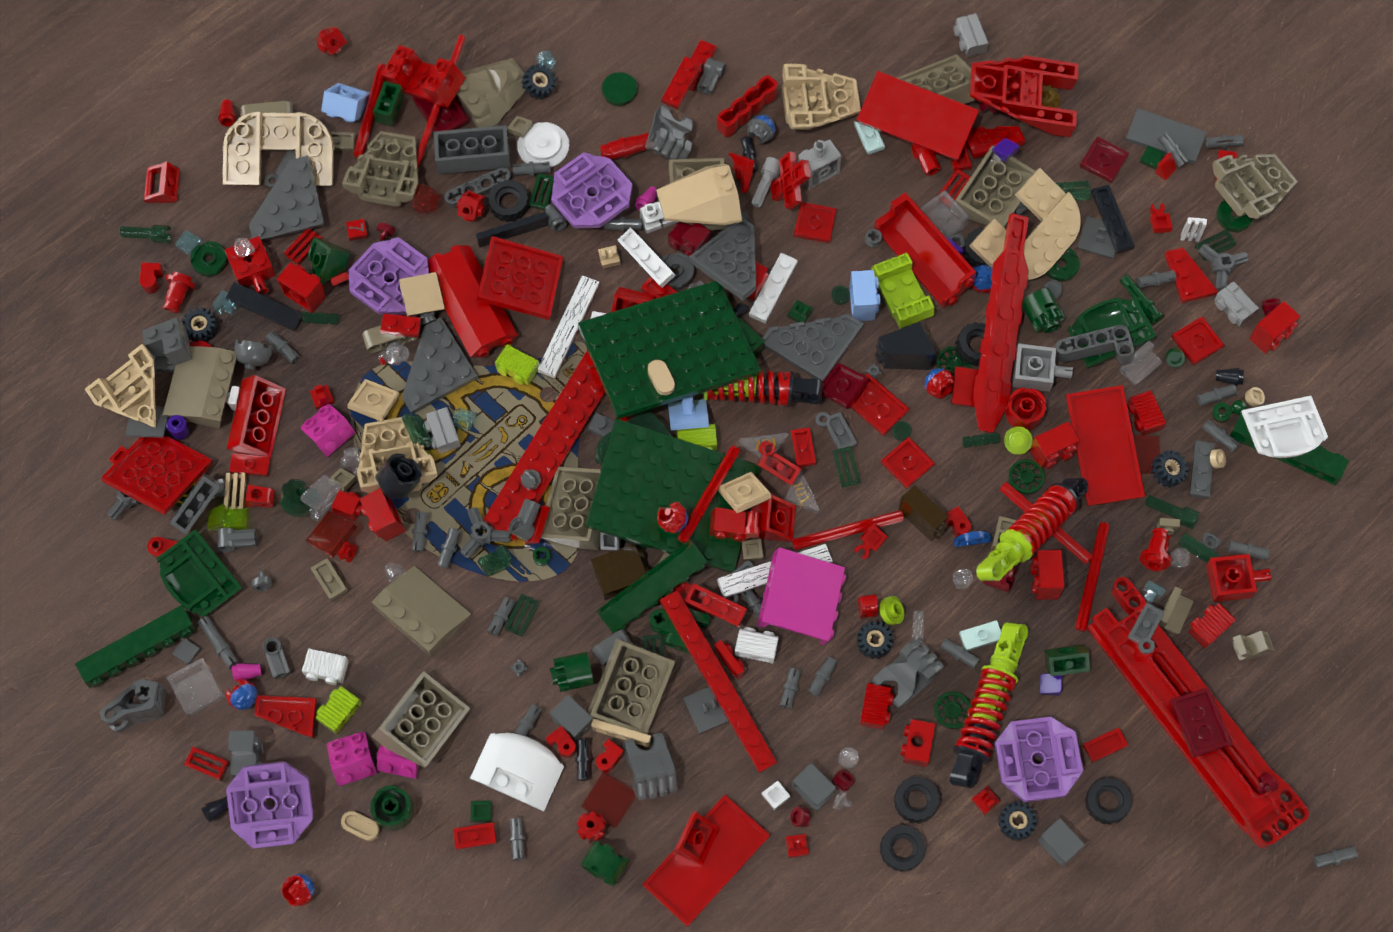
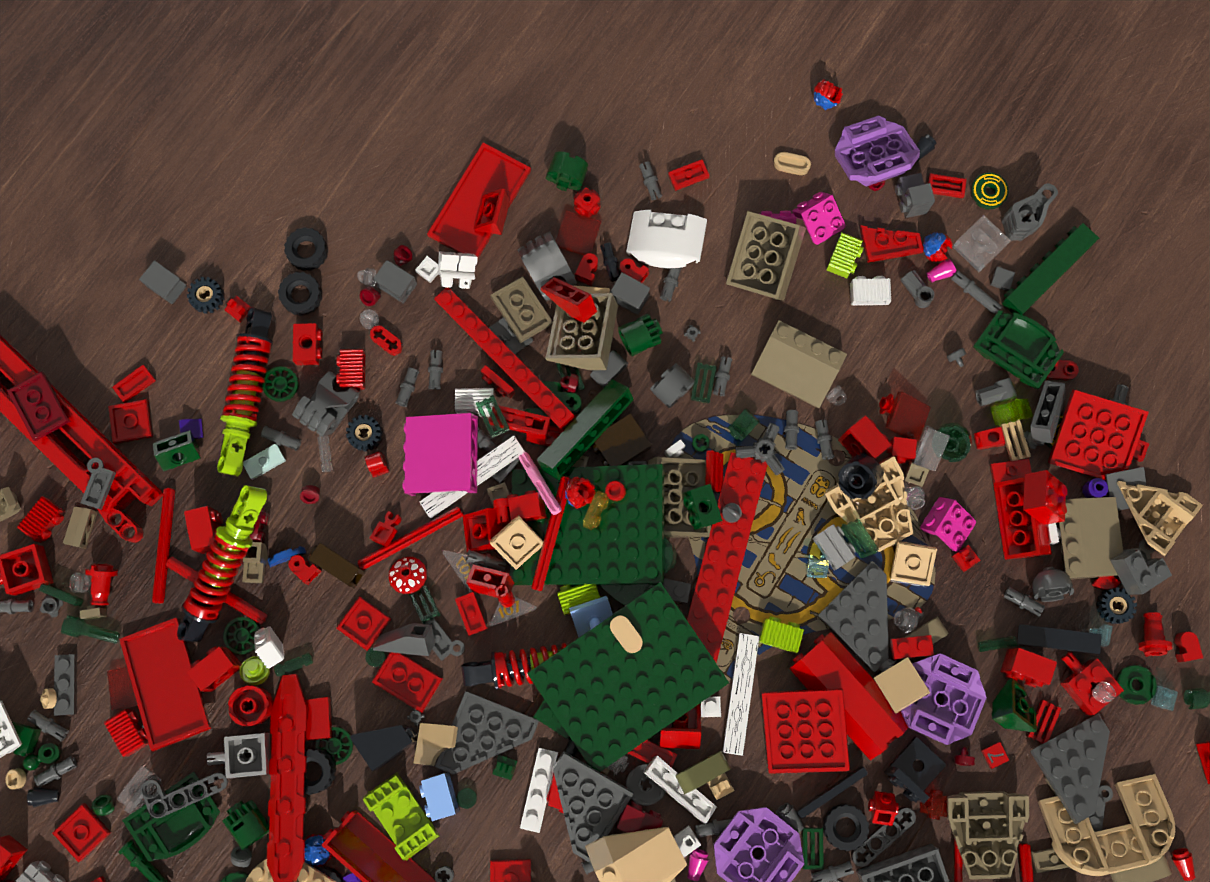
camera: 165 degrees right, 10 degrees up
(160, 736) = (993, 181): none -> dark green tile
(231, 420) = (1045, 497): none -> red brick
(329, 579) = (895, 374): dark tan plate -> none
(339, 278) = (993, 690): red tile -> none
(382, 802) = (771, 169): dark green brick -> none
(440, 223) = (911, 781): none -> black bracket
(480, 811) = (689, 199): dark green tile -> none
(522, 525) = (725, 464): dark grey piece -> none
(553, 612) = (673, 385): none -> dark grey brick
(555, 498) = (710, 512): none -> dark green brick
(568, 553) = (675, 450): none -> white plate
(622, 266) = (702, 772): none -> olive beam
(636, 716) = (571, 299): none -> red slope
(637, 512) = (615, 490): none -> red tile
(653, 638) = (573, 382): none -> dark red tile
(655, 503) = (595, 509): none -> clear yellow plate
(687, 729) = (521, 309): none -> dark tan plate
(709, 541) = (540, 484): none -> bright pink axle
(737, 594) = (486, 402): none -> clear green tile
(745, 785) = (456, 265): none -> white hips
(779, 490) = (485, 560): none -> dark grey pin
(797, 845) = (401, 232): red tile -> none
(831, 734) = (384, 343): none -> red beam
(843, 385) = (443, 691): dark red tile -> none
(847, 496) = (411, 582): none -> red dish
(860, 345) = (432, 741): none -> tan tile
(869, 432) = (409, 639): none -> dark grey slope
(892, 610) = (352, 463): lime plate -> none
(939, 383) = (345, 715): red piece -> none
(939, 591) = (310, 494): none -> dark red tile
(962, 578) = (289, 513): clear tile -> none
(1000, 452) = (268, 647): none -> white brick
(1052, 744) = (178, 335): medium lavender piece -> none
(1113, 707) = (130, 421): none -> red tile
(1119, 790) = (118, 318): black tyre -> none
(1153, 591) = (102, 540): clear light blue tile -> none
(1172, 459) = (87, 674): black bush -> none

